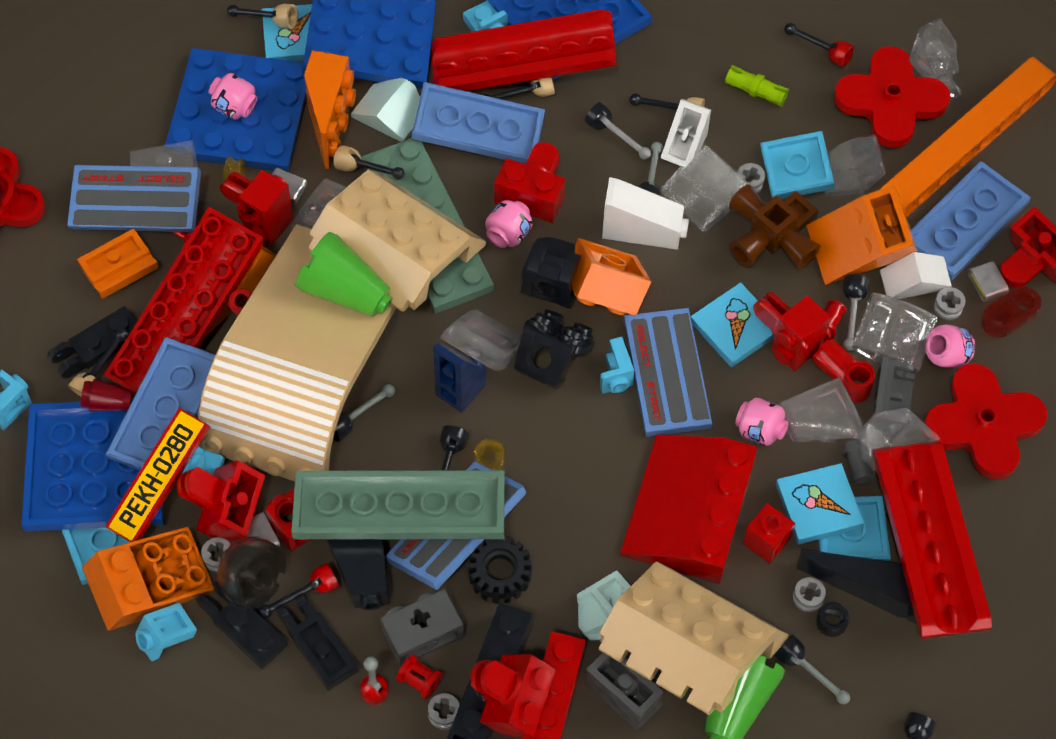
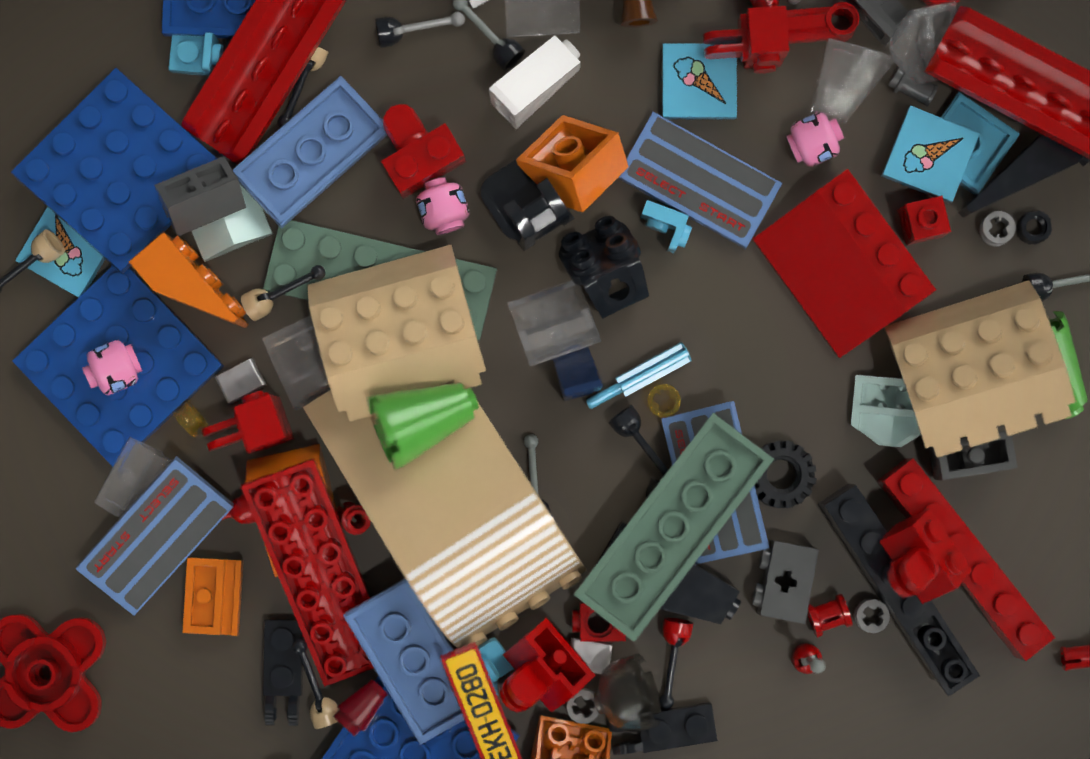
camera: 50 degrees left, 25 degrees up
(319, 645) = (734, 679): black hinge -> none
(391, 72) = (201, 196): none -> dark grey hinge
(497, 429) = (644, 374): none -> medium azure axle

